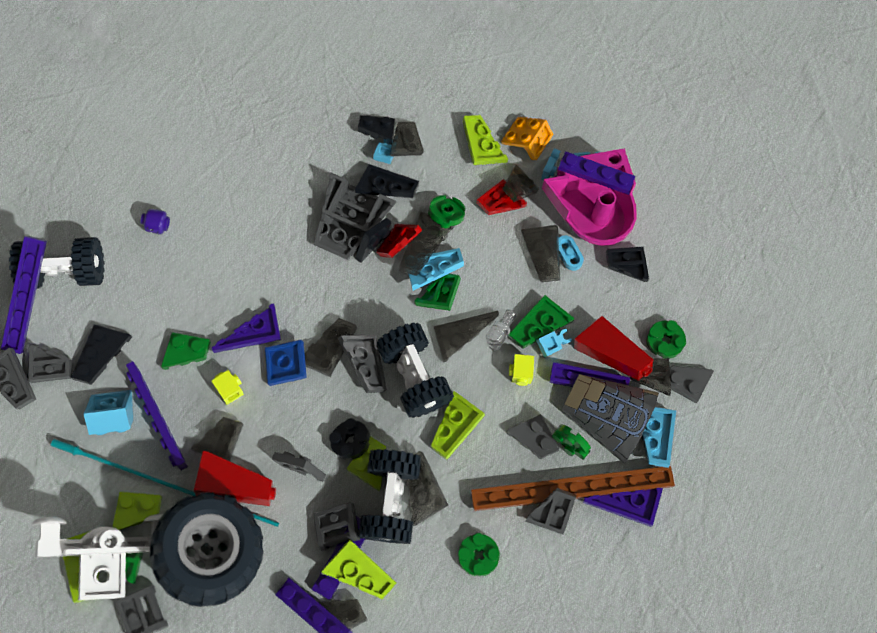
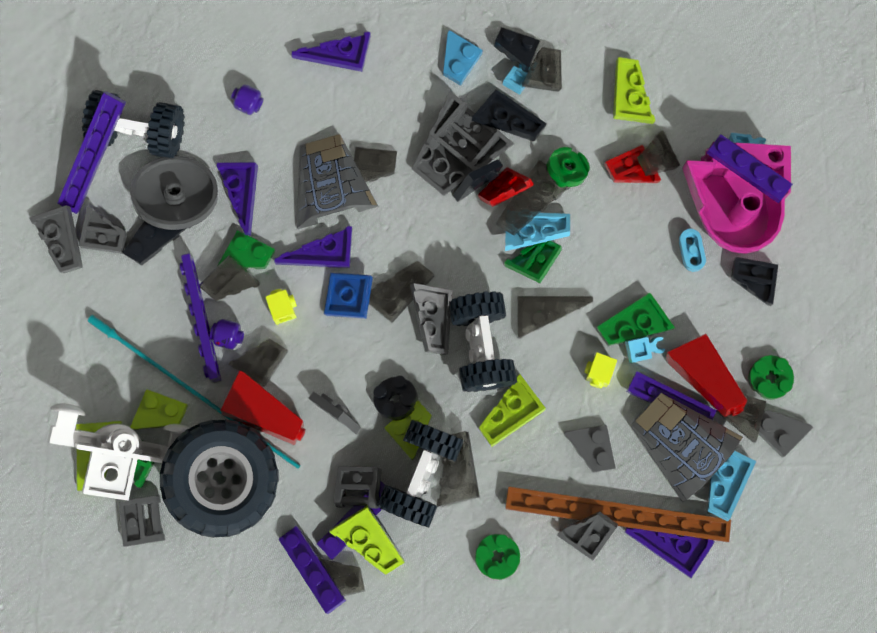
camera: 20 degrees right, 10 degrees up
(107, 313) = (174, 192): none -> dark grey dish
(109, 412) = (153, 301): medium azure slope -> none
(166, 293) = (240, 182): none -> dark purple wing
(173, 376) = (228, 279): none -> clear smoke wing
(183, 423) = (226, 334): none -> dark purple head
(231, 165) = (343, 53): none -> dark purple wing
(244, 271) = (329, 181): none -> wedge
(278, 250) = (375, 163): none -> clear smoke wing
(331, 147) = (459, 58): none -> dark azure wing
(500, 330) = (589, 319): clear arm -> none
(529, 133) = (687, 98): light orange bracket -> none
(544, 251) = (664, 241): clear smoke wing -> none
(550, 168) = (700, 145): medium azure plate -> none
(572, 443) = (631, 468): green plate -> none

